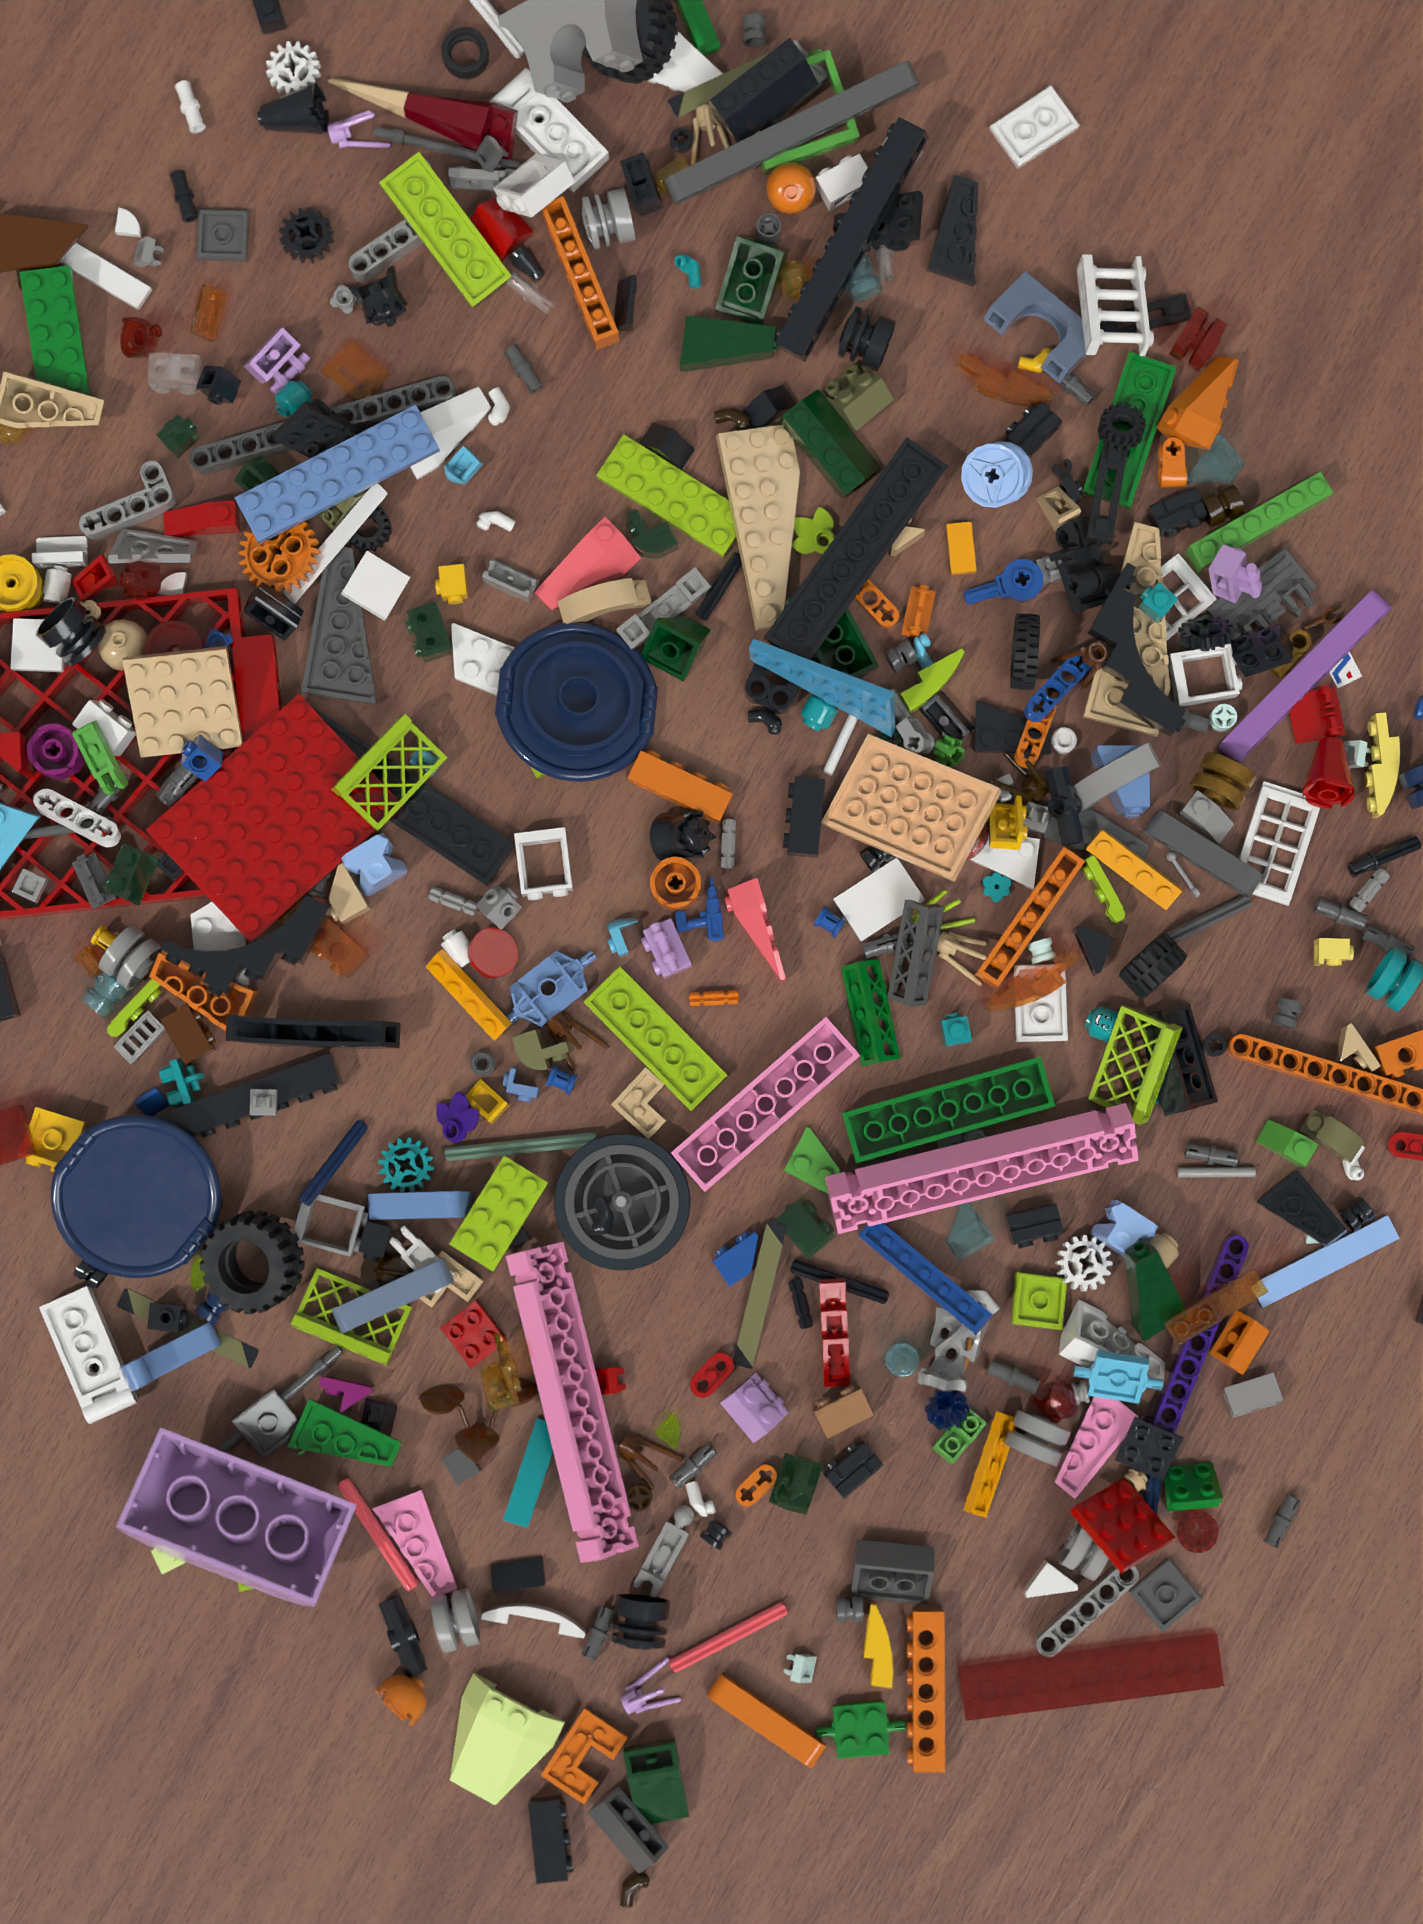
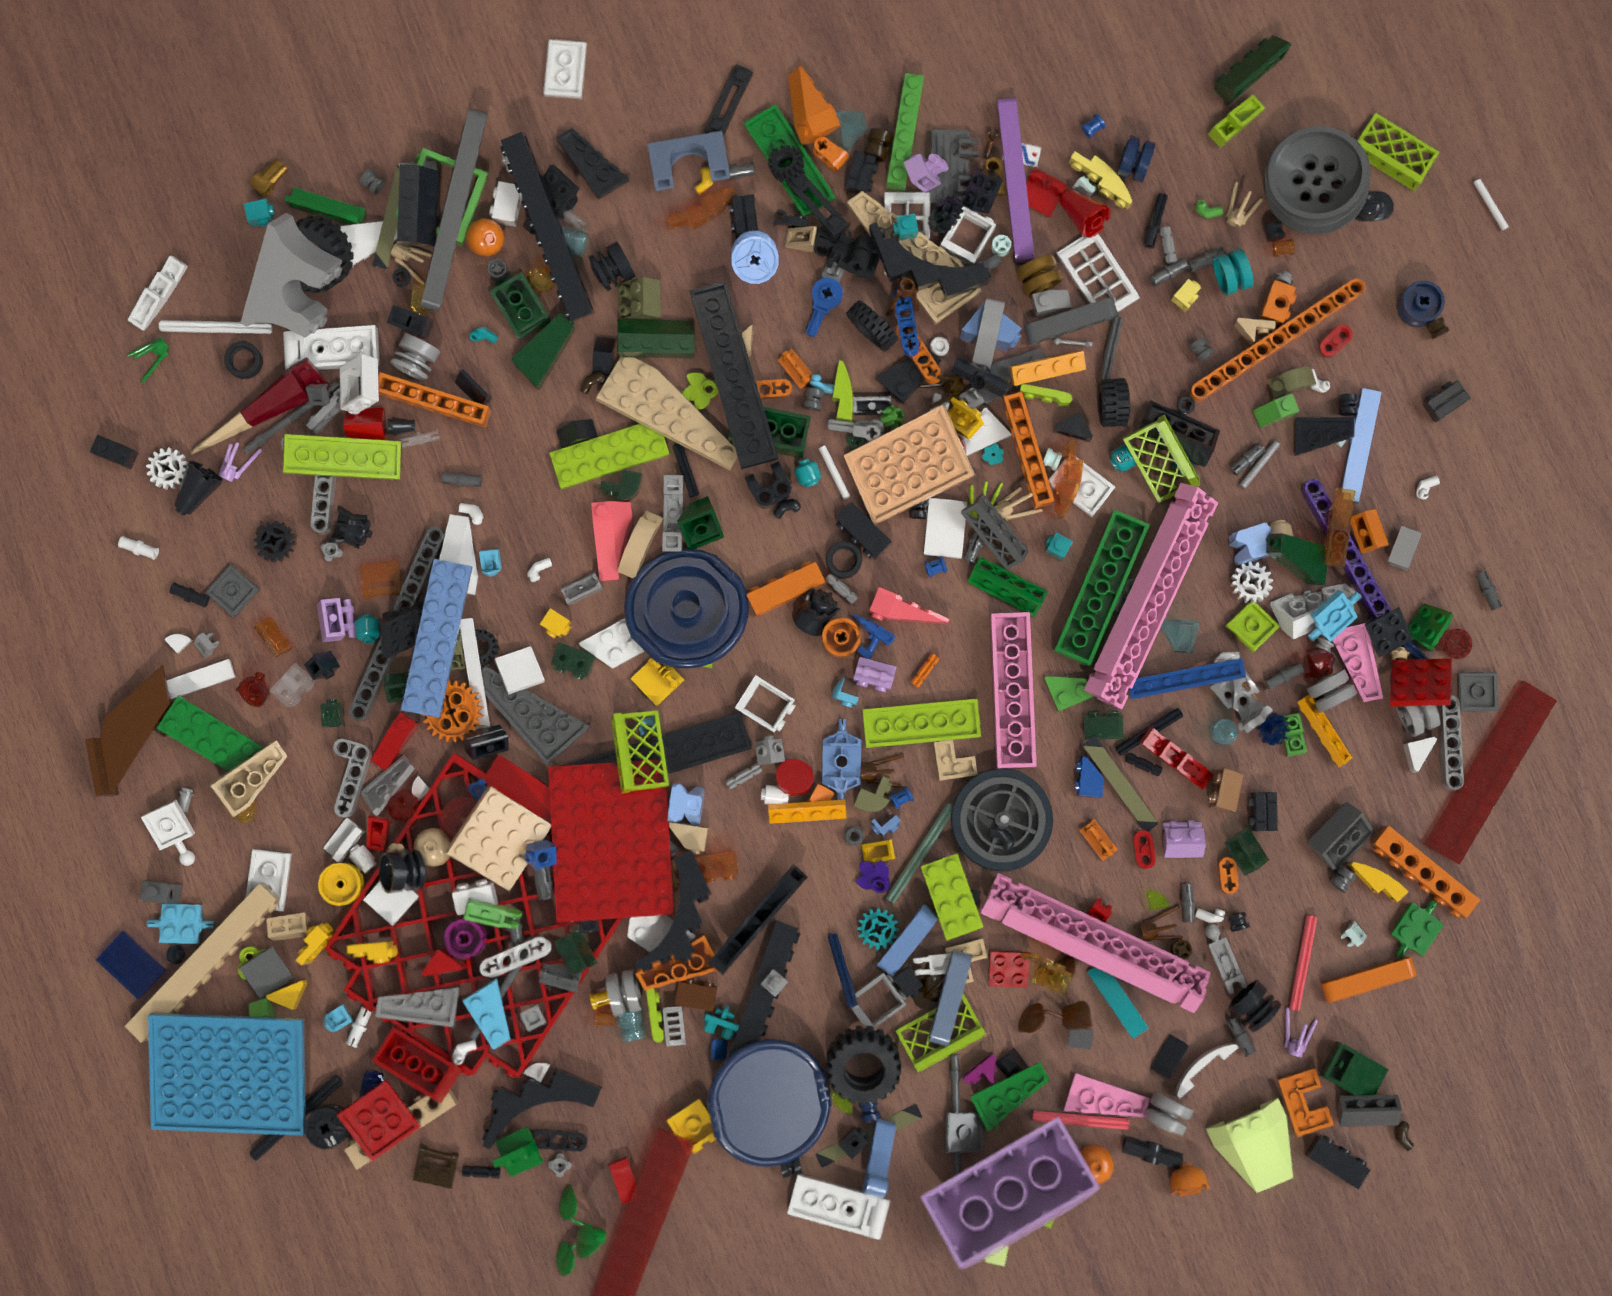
camera: 50 degrees left, 0 degrees up
(345, 1586) = (1098, 1161): none -> orange cylinder
(478, 734) = (657, 680): none -> yellow hinge
(498, 995) = (821, 794): none -> orange slope
(683, 1319) = (1098, 840): none -> orange hinge
(756, 803) = (843, 545): none -> black tyre
(855, 696) = (815, 446): dark azure wing -> none
(961, 548) = (778, 313): light orange tile -> none
(1034, 1224) = (1206, 592): black brick -> none
(1092, 315) = (707, 126): white fence -> none
(1199, 339) = (770, 78): clear red wheel -> none
(1336, 1364) = (1424, 486): none -> white arm

